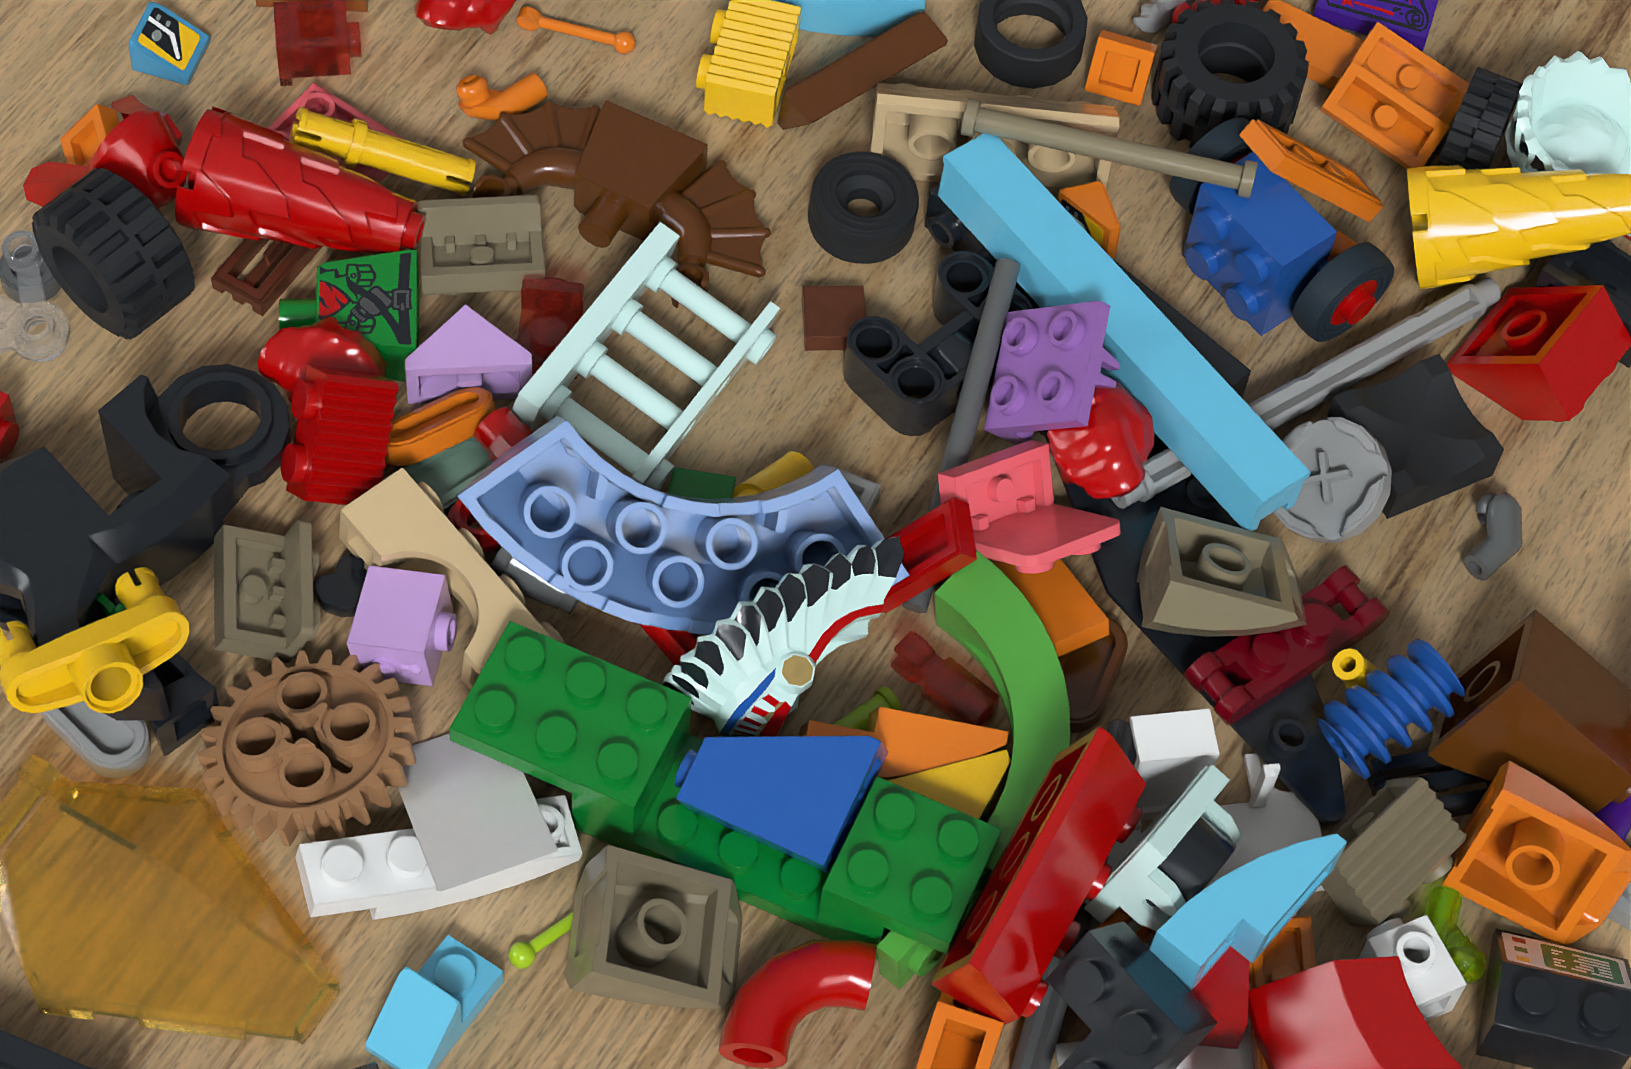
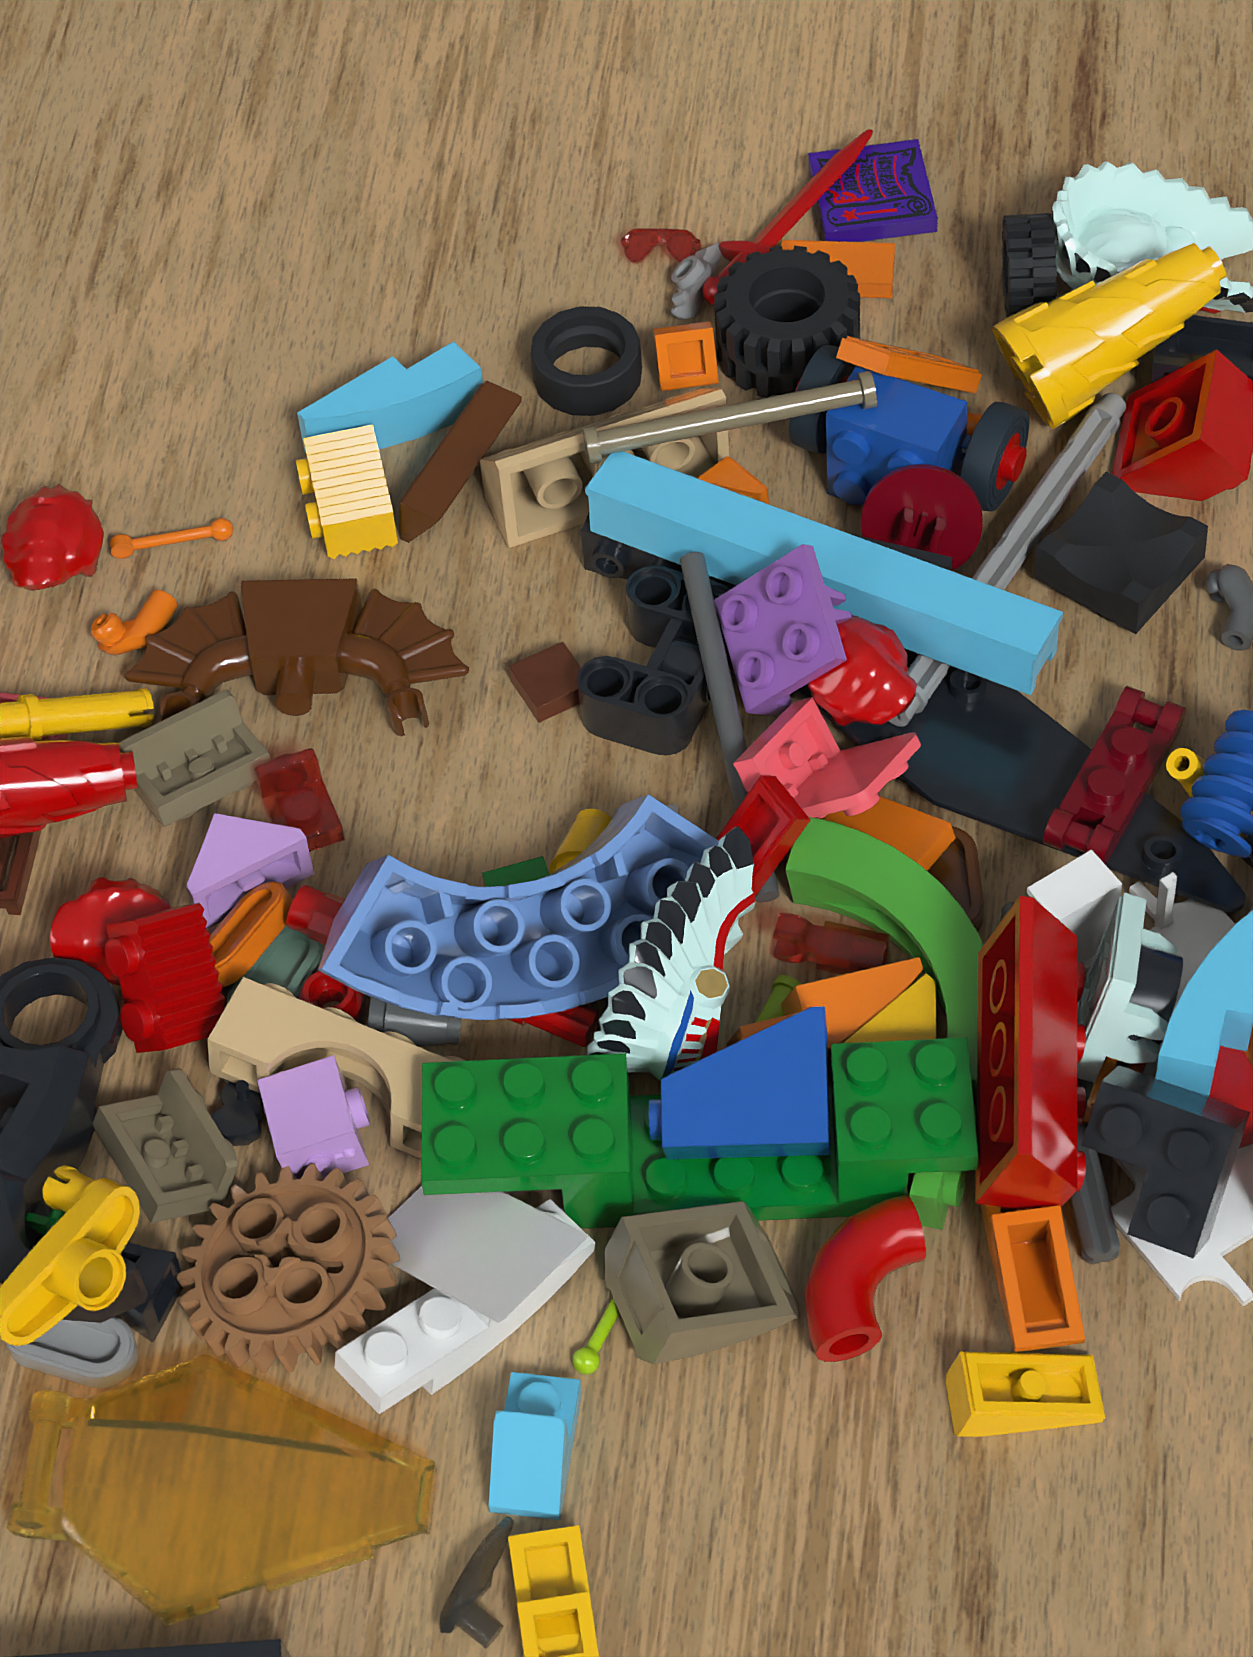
camera: 15 degrees left, 5 degrees down
(367, 295) = (118, 845): torso -> none
(620, 311) = (362, 757): light aqua fence -> none
(868, 178) = (523, 604): black tyre -> none
(1216, 579) = (1024, 745): dark tan slope -> none
(1248, 317) = (924, 511): none -> dark red piece
(1345, 482) = (1094, 619): light grey tile -> none
(1396, 98) = (940, 277): orange slope -> none

